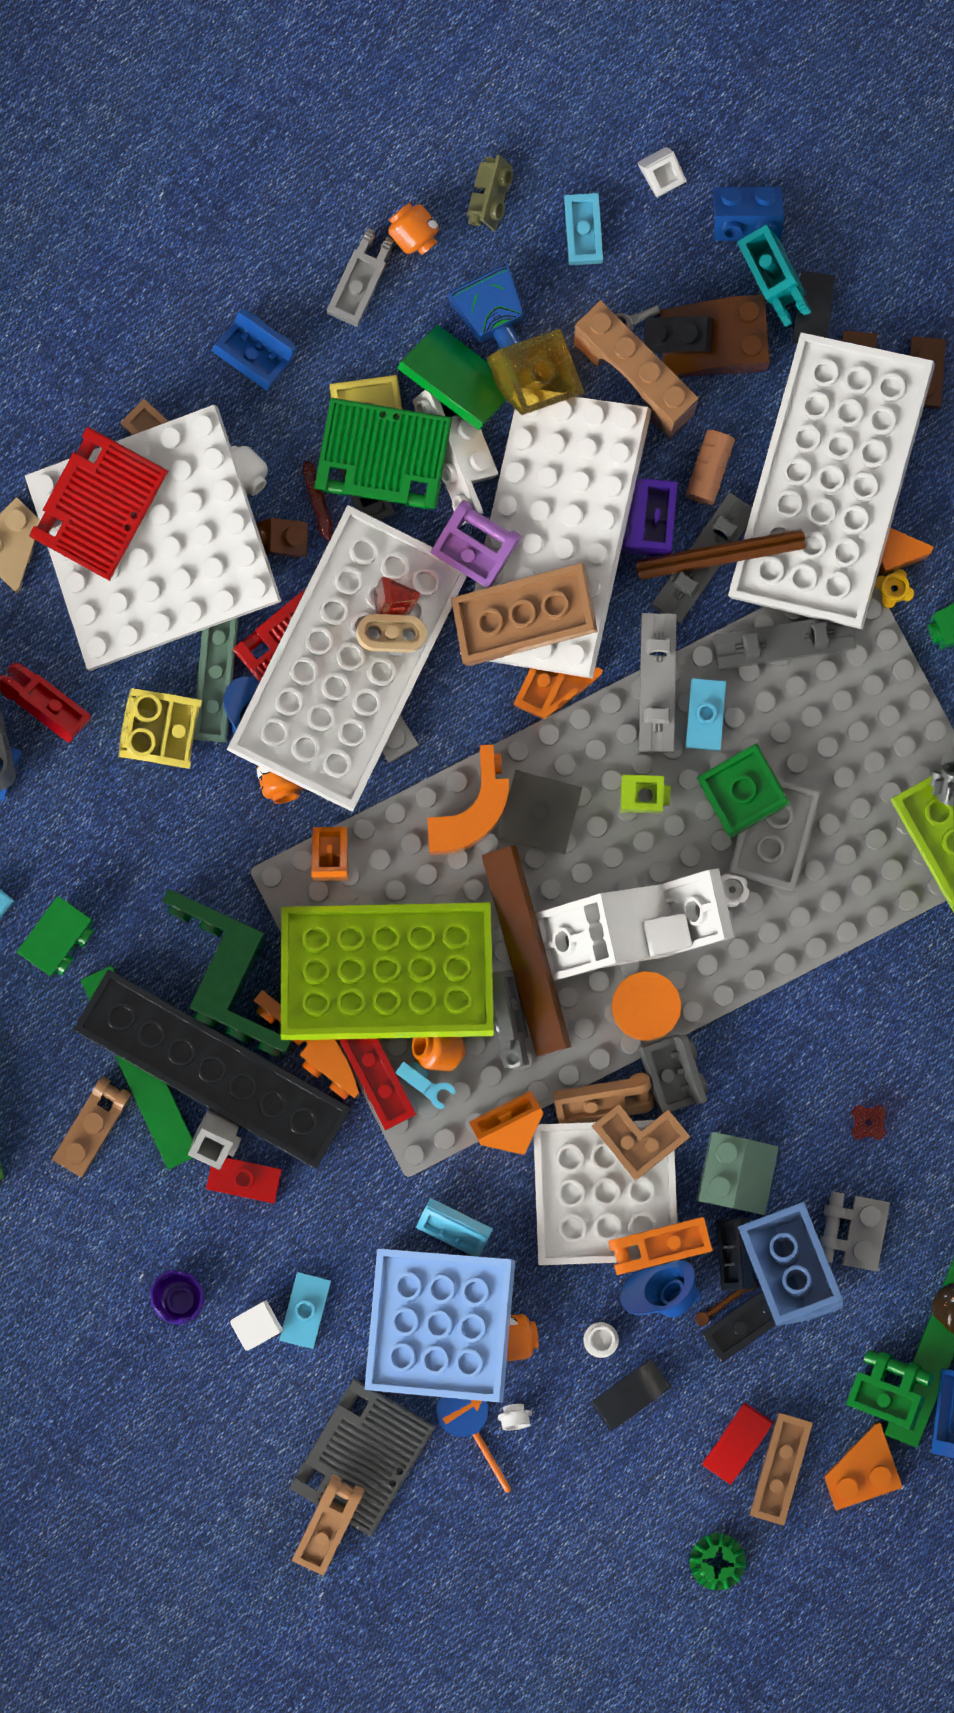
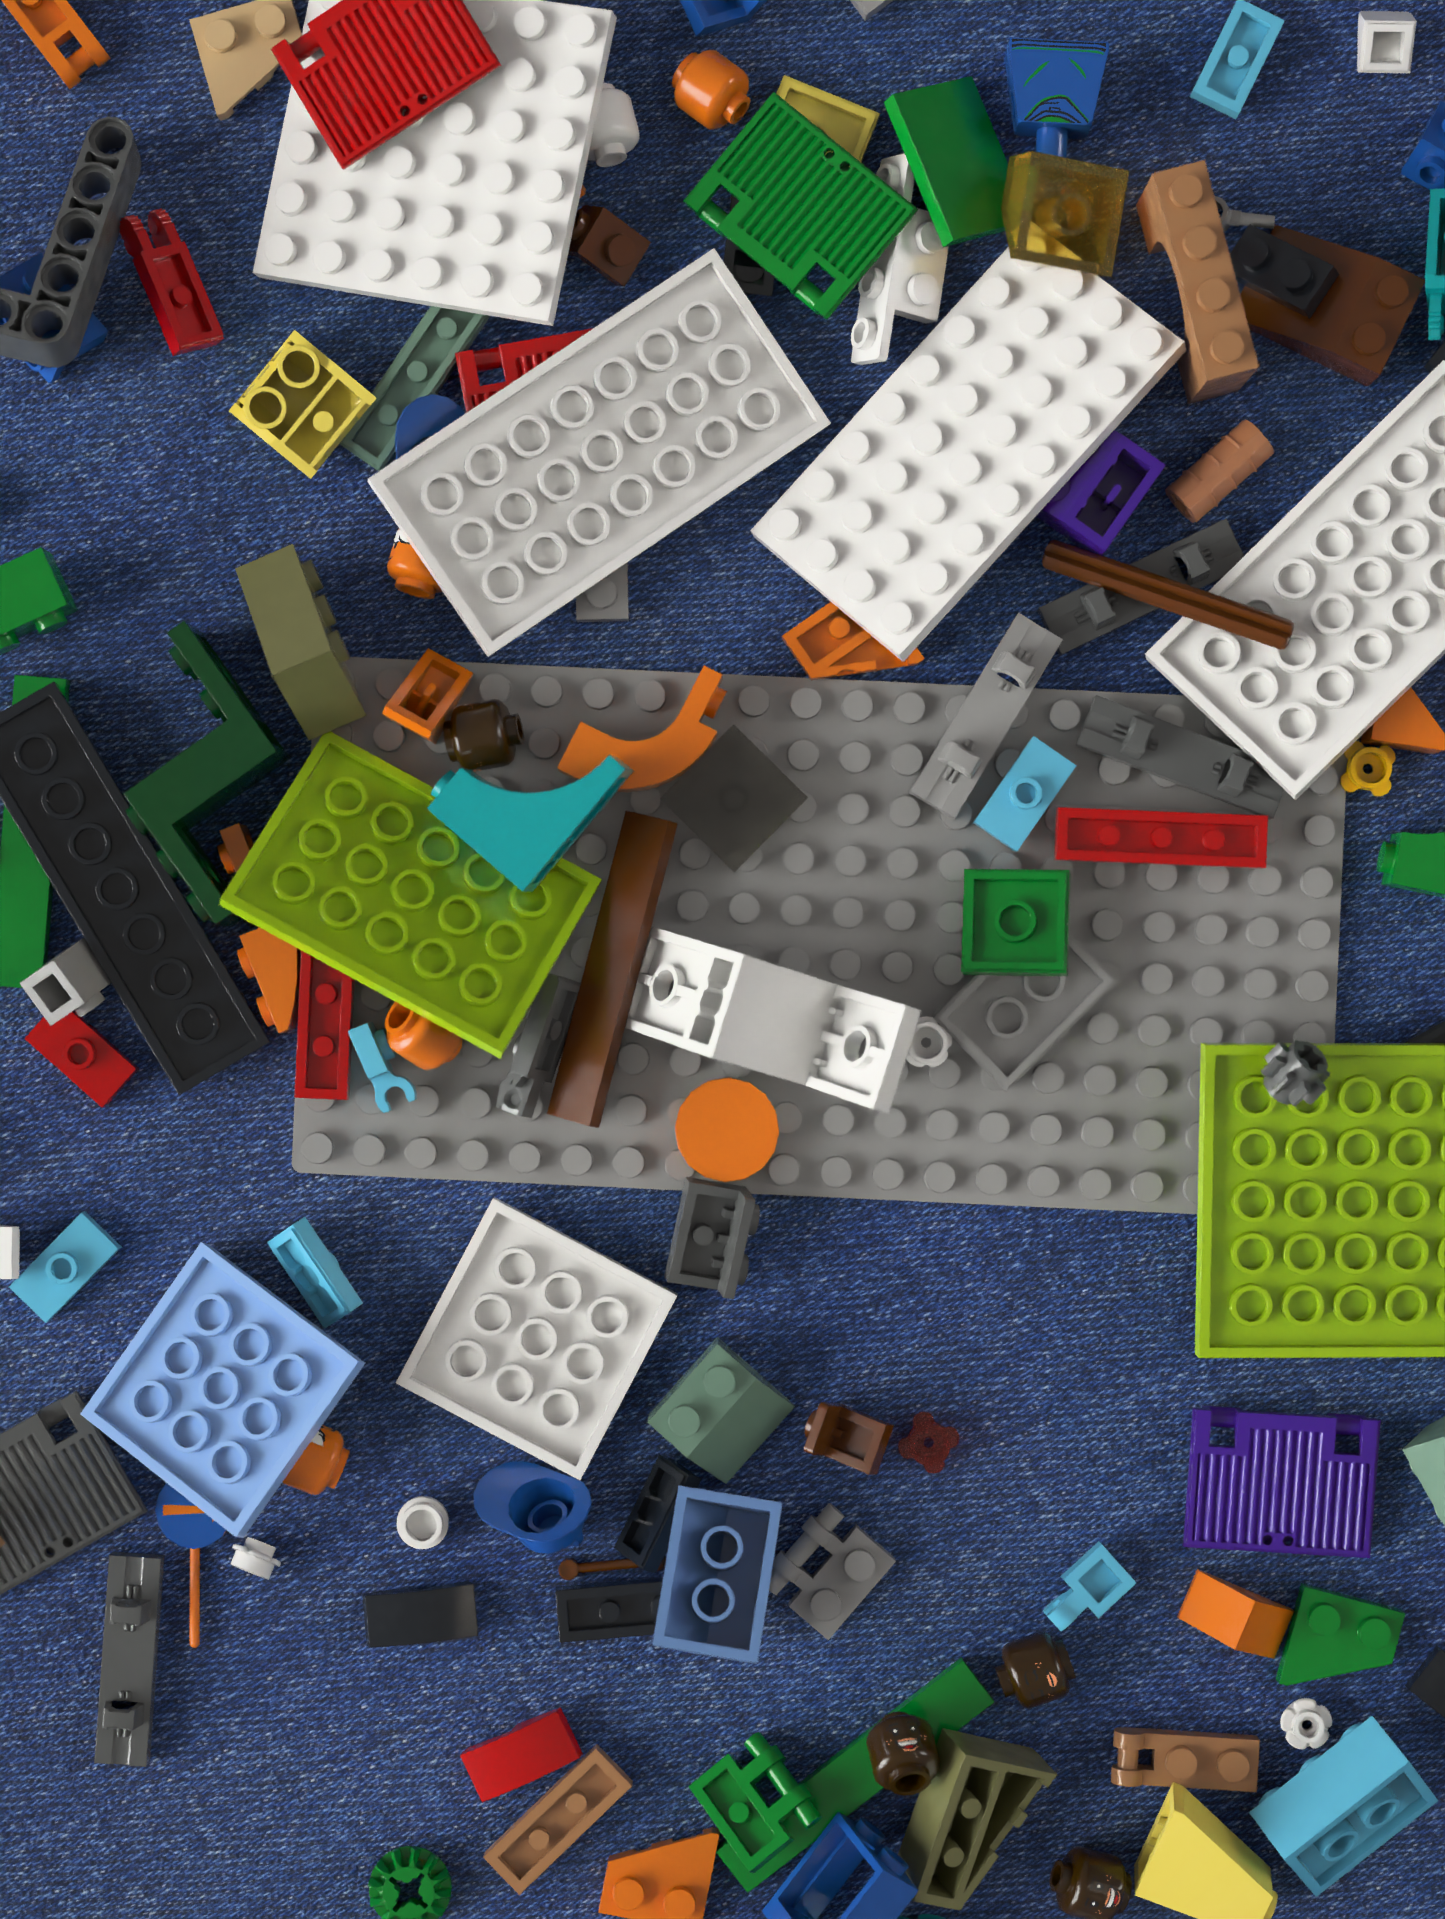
camera: 30 degrees right, 5 degrees up
(238, 863) = (299, 641): none -> olive wedge
(293, 416) = (711, 89): none -> orange head
(318, 502) = (673, 255): clear red piece -> none
(374, 858) = (483, 735): none -> dark brown head
(390, 631) = (674, 446): tan plate -> none
(394, 598) = (701, 406): clear red slope -> none
(430, 898) = (524, 831): none -> teal arch
(468, 553) = (836, 405): medium lavender plate -> none
(474, 1521) = (129, 1658): none -> dark grey hinge
(509, 1125) = (459, 1182): orange slope -> none
(524, 614) = (861, 526): medium nougat plate -> none
(595, 1101) = (603, 1220): medium nougat plate -> none
(633, 784) = (876, 832): lime brick -> none
(639, 1149) = (610, 1312): medium nougat plate -> none
(661, 1245) = (566, 1451): orange plate -> none
(667, 934) = (804, 1057): white slope -> none
(798, 695) = (1161, 837): none -> red plate
(819, 1145) = (847, 1436): none -> reddish brown bracket

